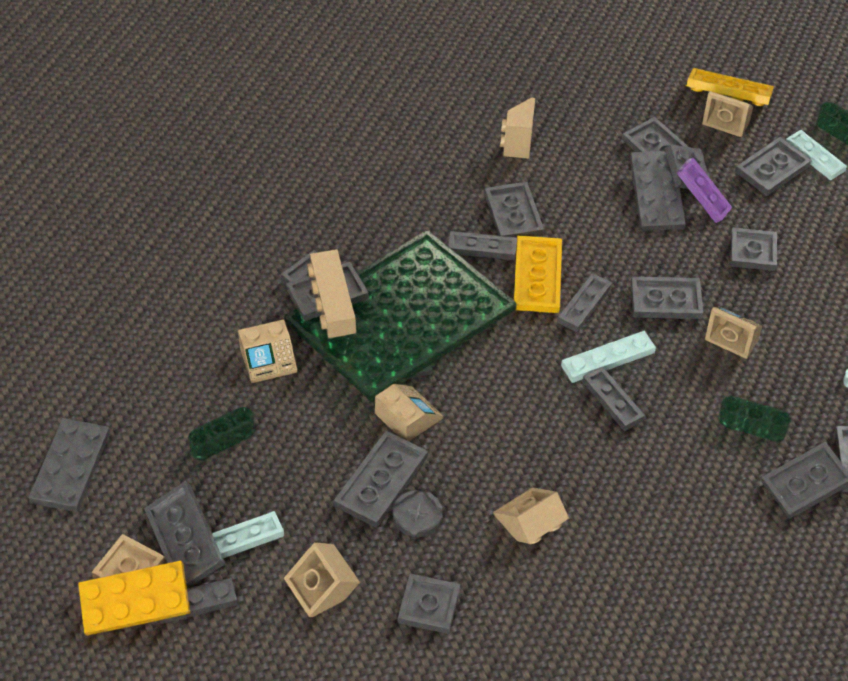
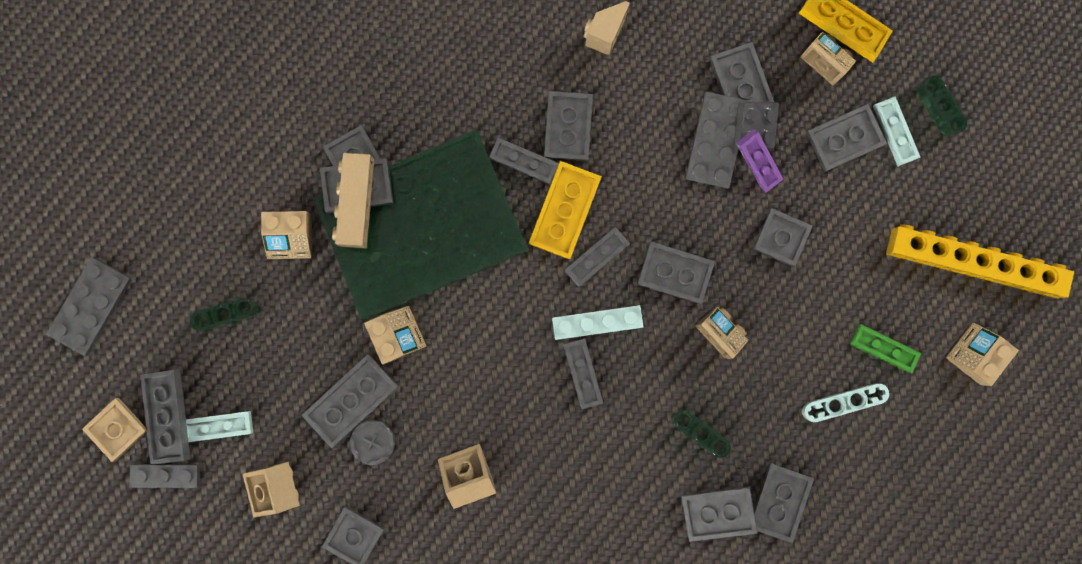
camera: 20 degrees right, 35 degrees up
(134, 598) = (110, 467): yellow plate -> none

